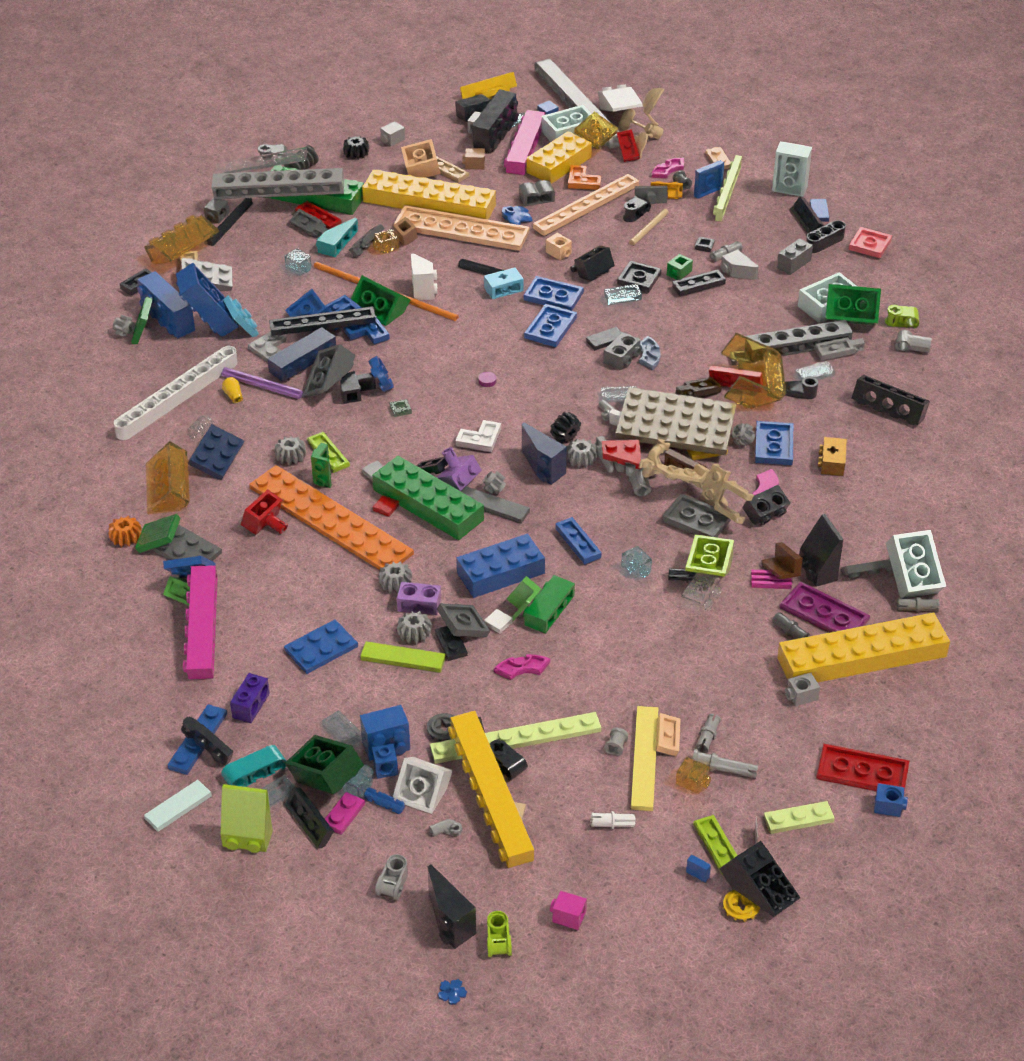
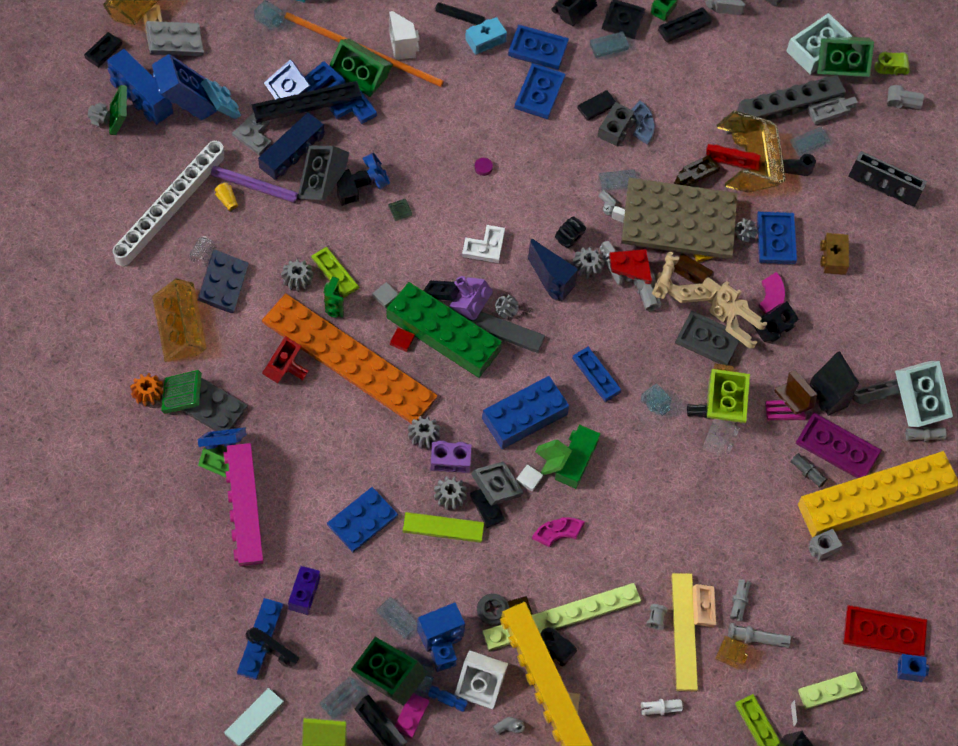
camera: 10 degrees left, 20 degrees up
(254, 766) = (319, 670): teal beam -> none

